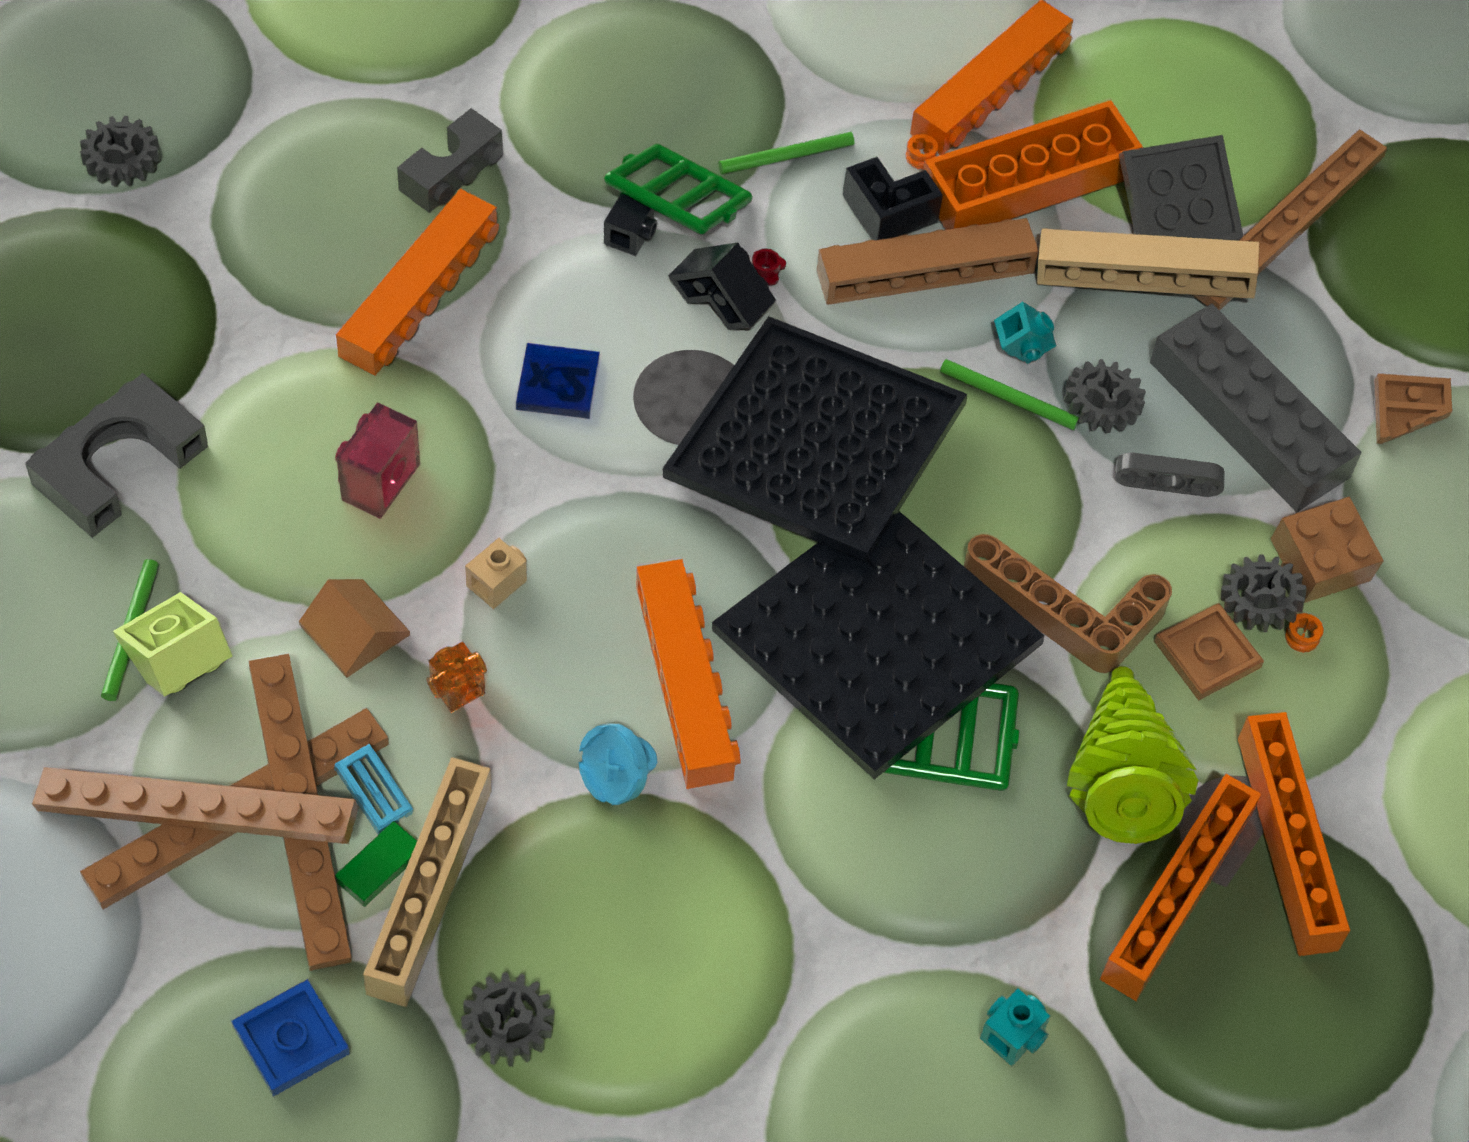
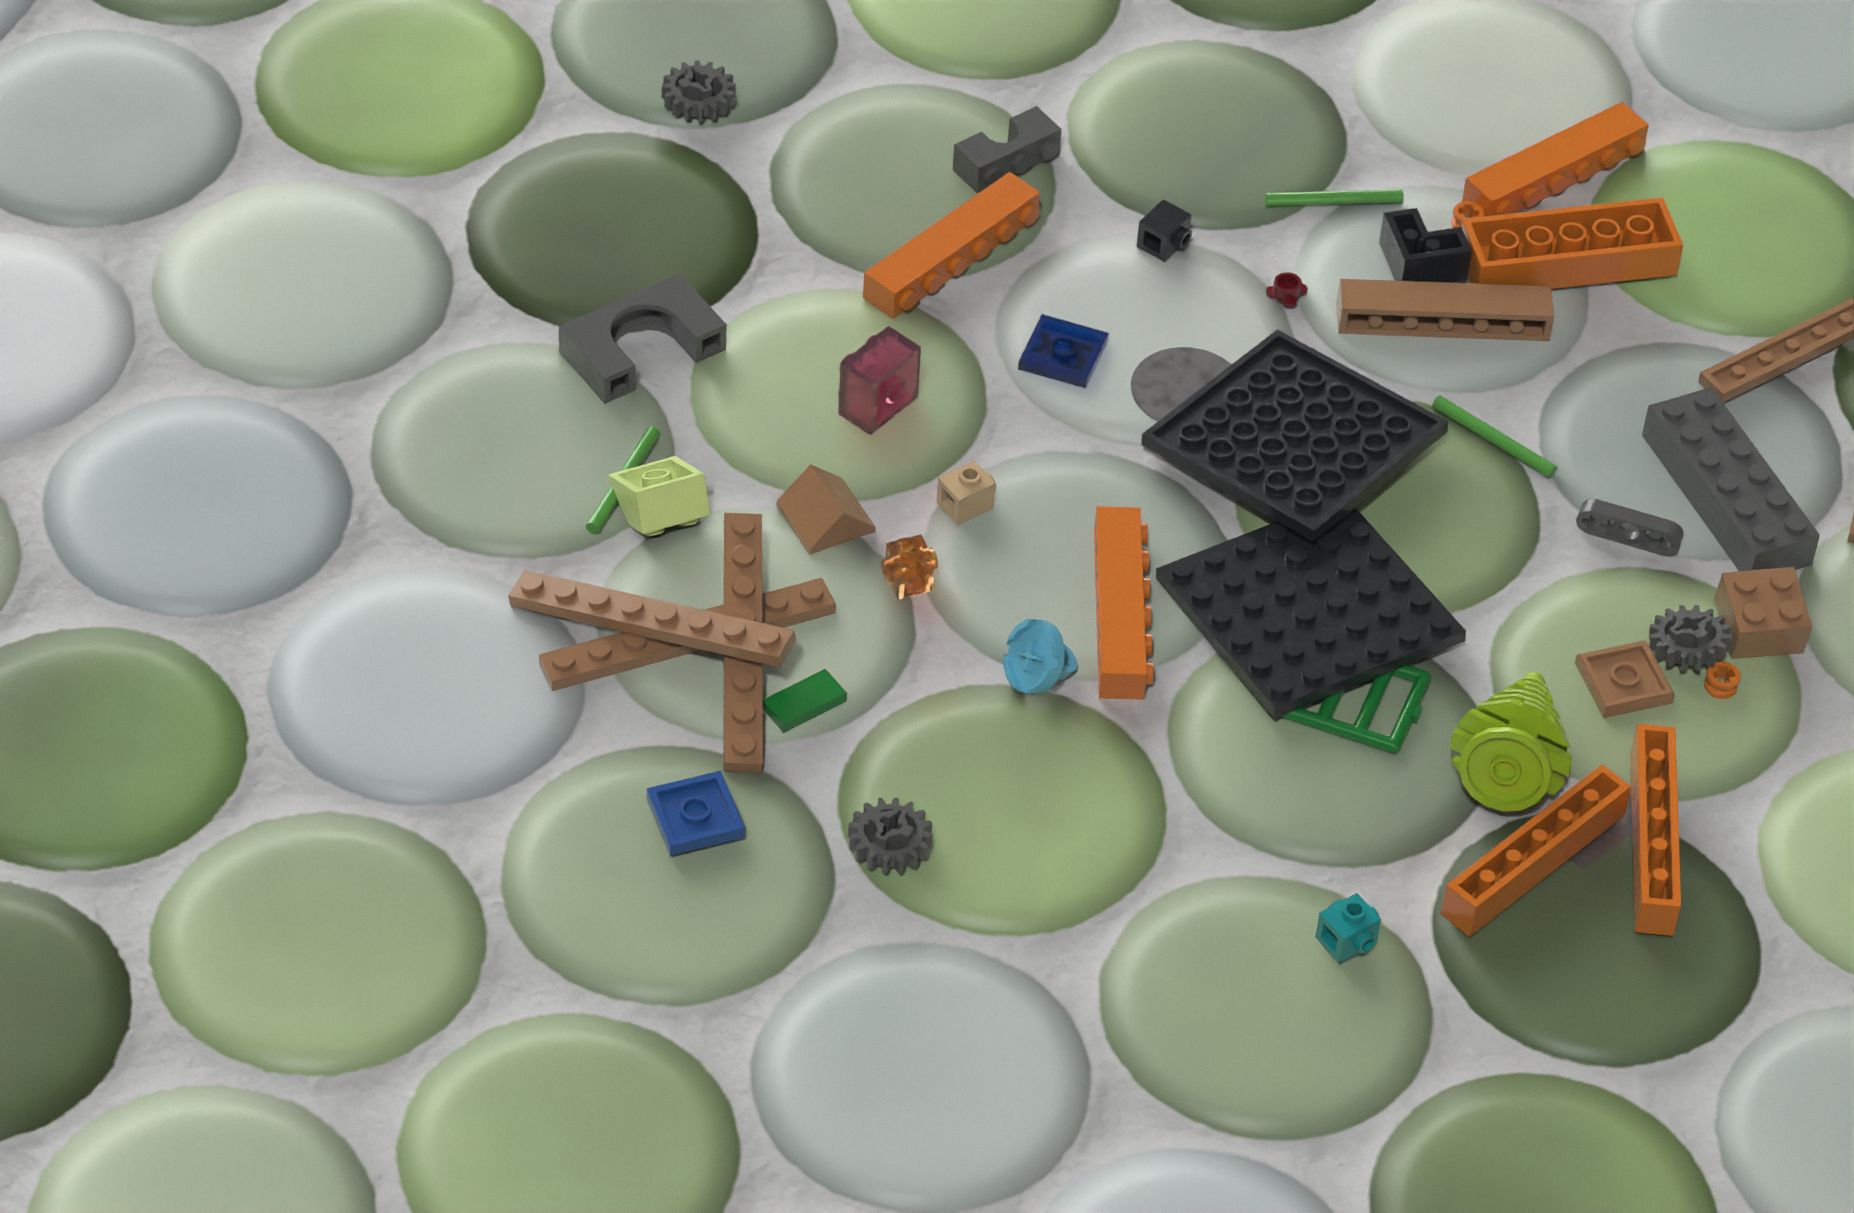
camera: 15 degrees right, 10 degrees down
(378, 824) = (836, 662): medium azure tile -> none
(427, 882) = (845, 716): tan brick -> none
(677, 209) = (1223, 192): green bar -> none
(725, 280) = (1243, 291): black brick -> none
(1025, 332) = (1521, 383): teal brick -> none
(1067, 608) = (1493, 624): medium nougat beam -> none
(1104, 396) = (1585, 451): dark grey gear -> none
(1148, 263) = (1660, 345): tan brick -> none
(1182, 190) = (1710, 293): dark grey plate -> none

